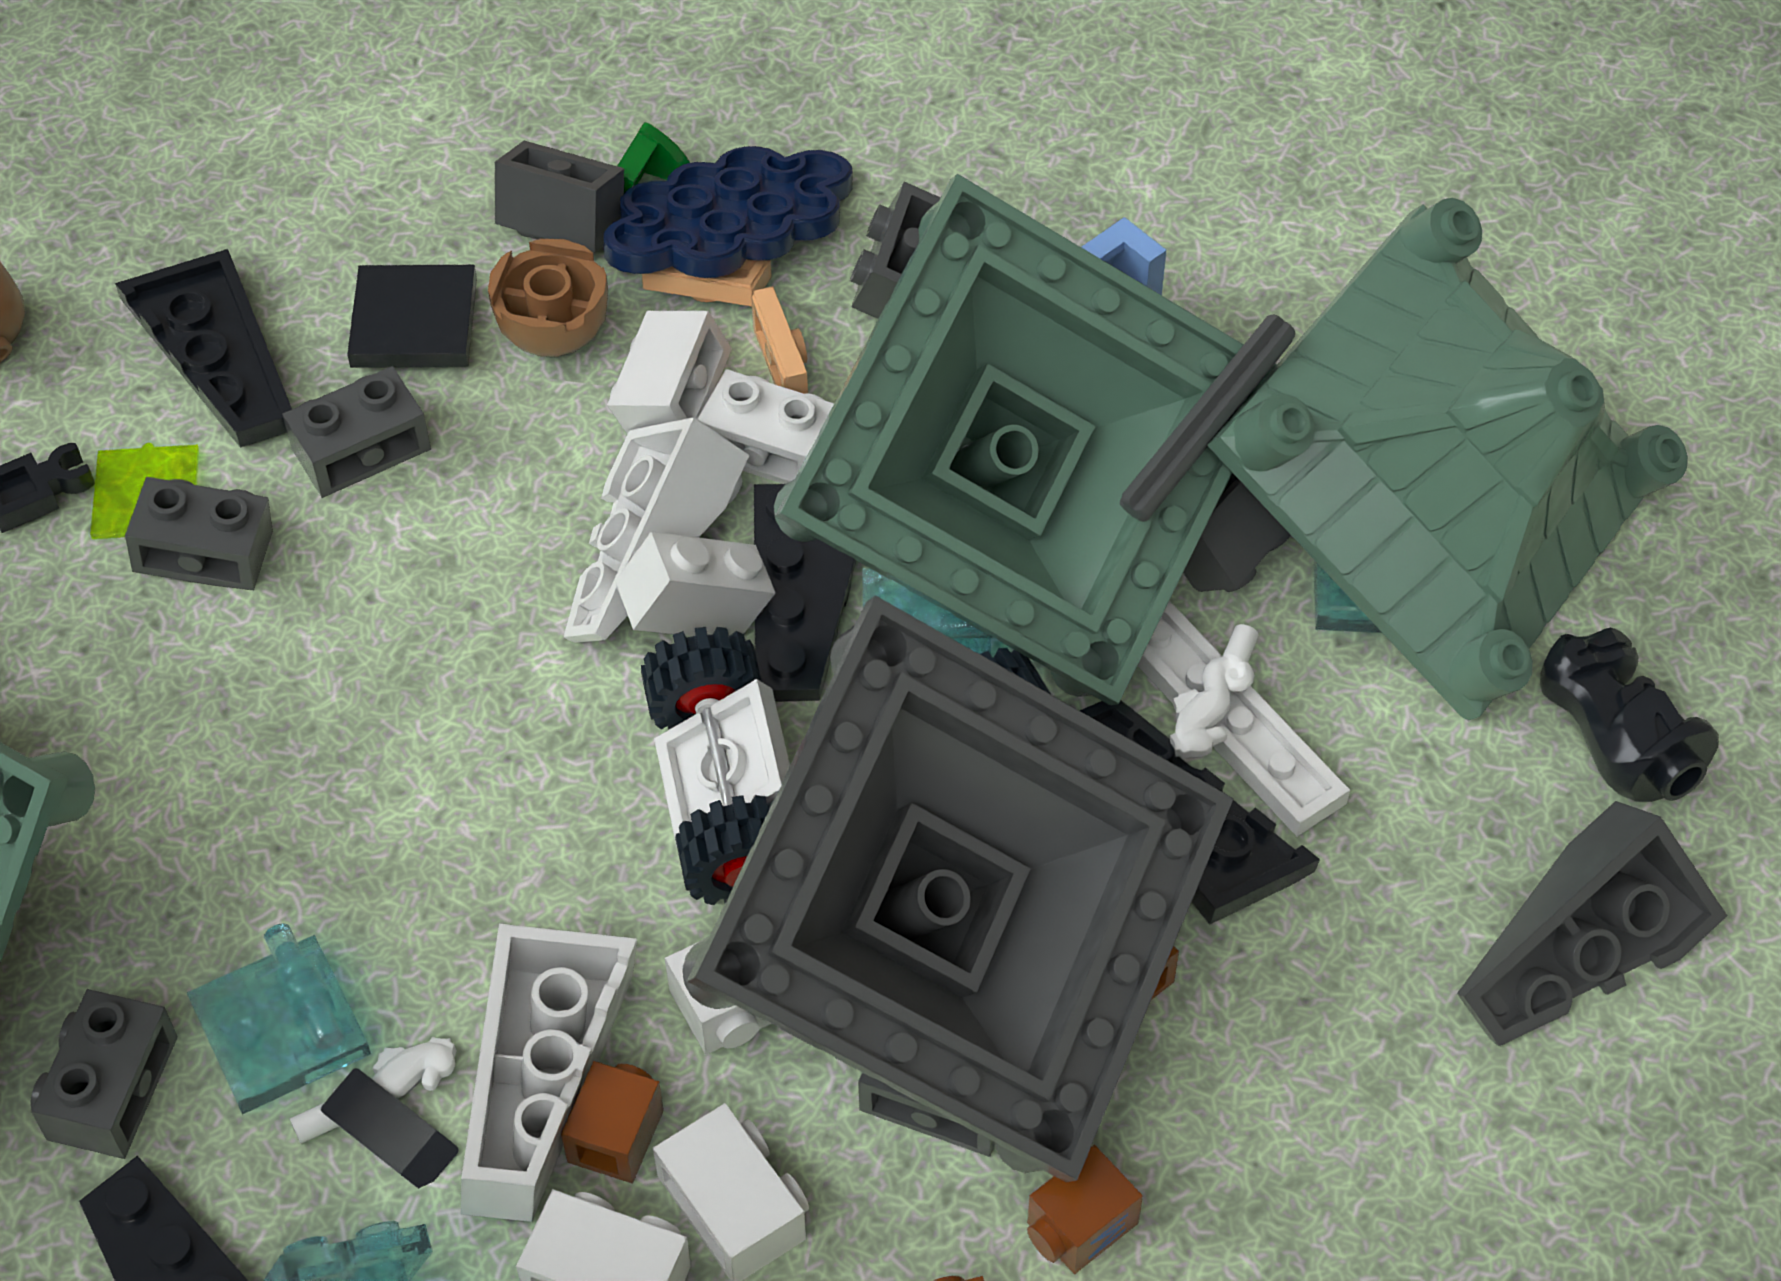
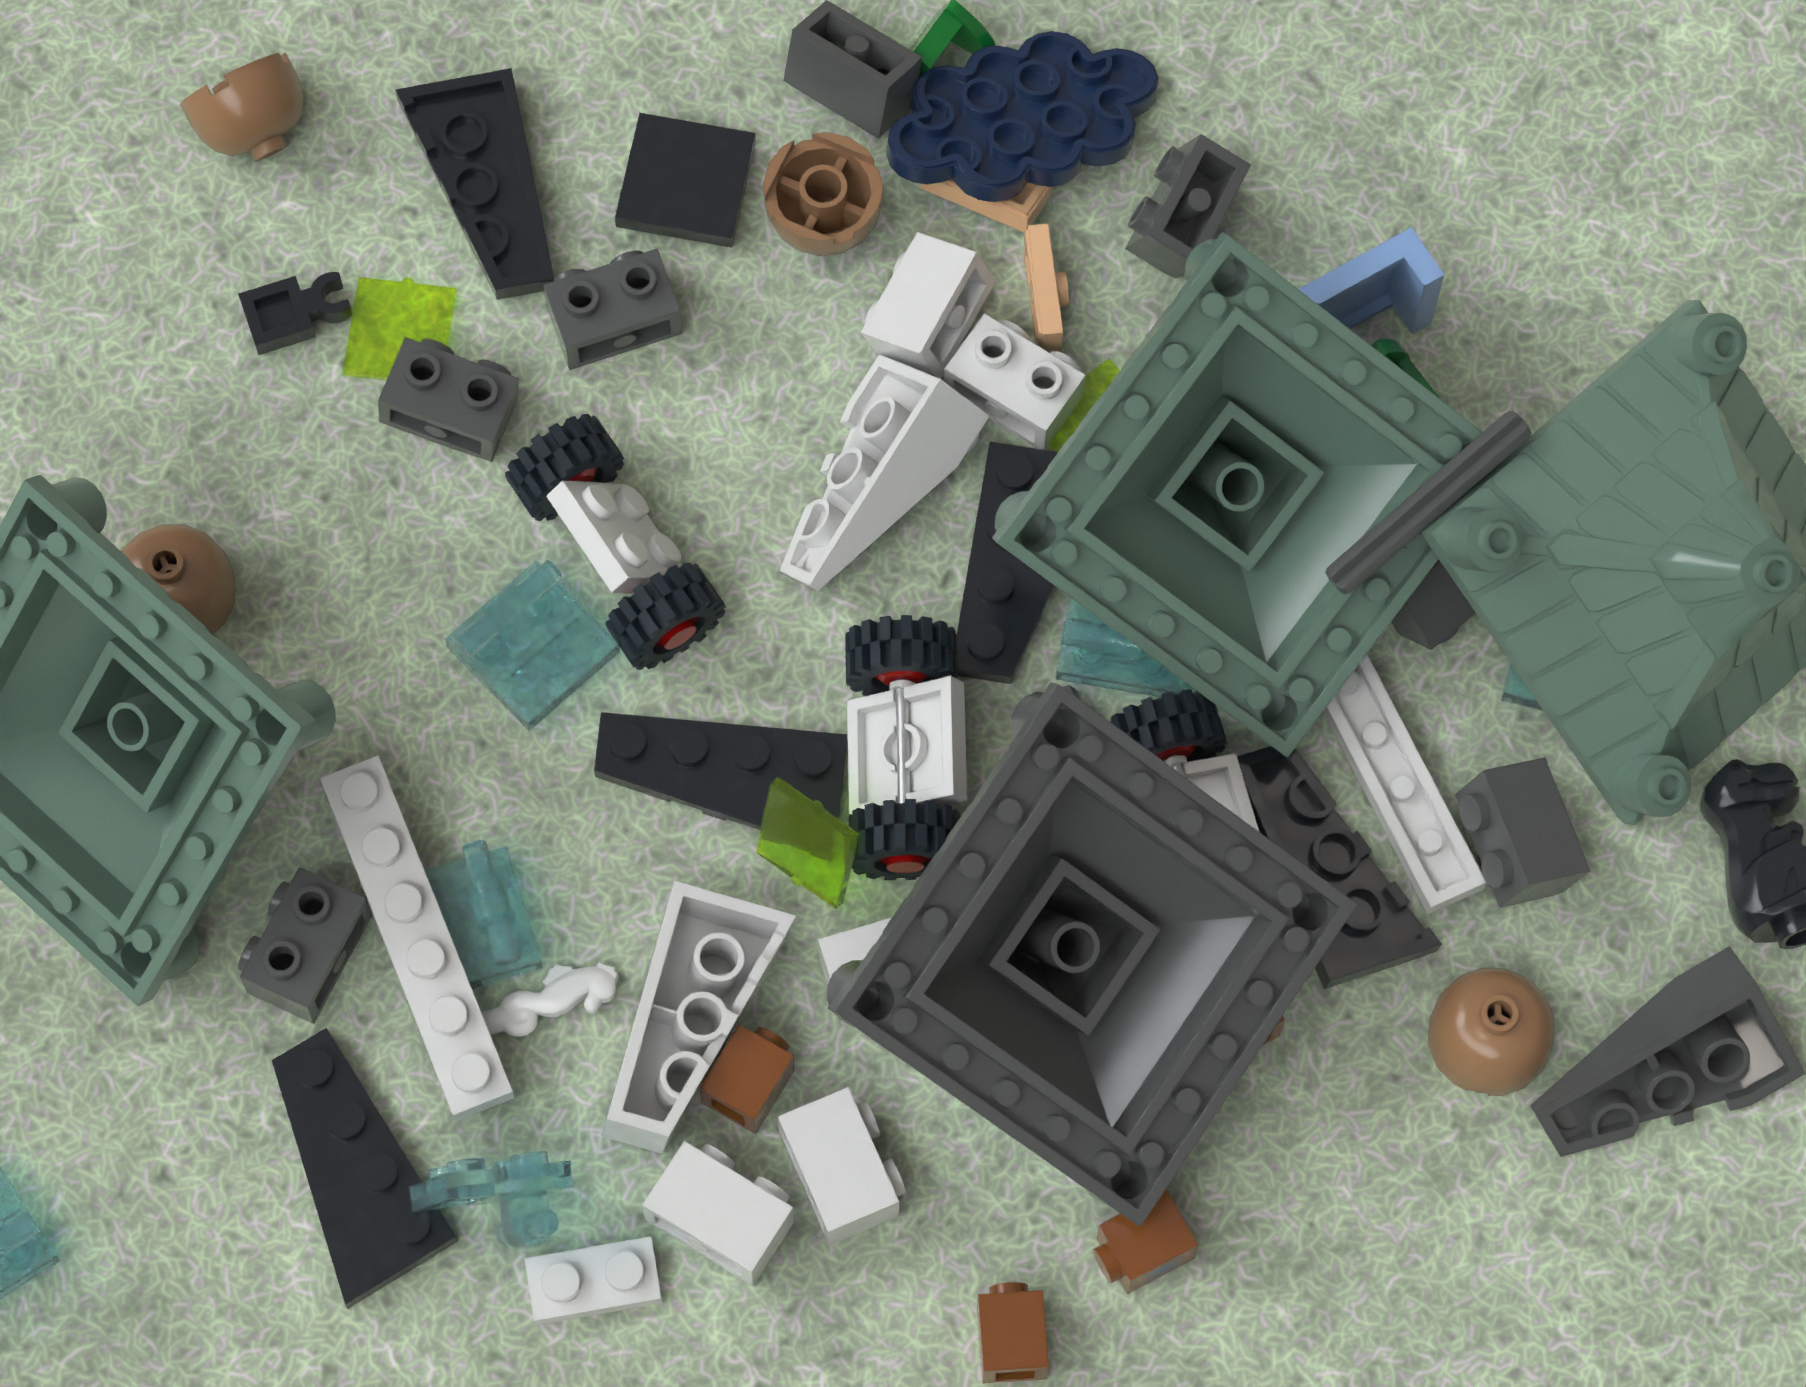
camera: 10 degrees right, 15 degrees up
(229, 1045) = (417, 939): none -> white plate
(316, 740) = (533, 644): none -> clear light blue plate
(389, 1129) = (549, 1044): black sticker -> none
(446, 670) = (568, 478): none -> plate
(571, 826) = (719, 764): none -> black wing
(636, 870) = (807, 843): none -> clear neon green piece
(693, 584) = (911, 555): white brick -> none
(1201, 711) = (1366, 776): white animal -> none
(1373, 736) = (1521, 832): none -> dark grey brick
(1394, 933) = (1487, 1055): none -> medium nougat cylinder

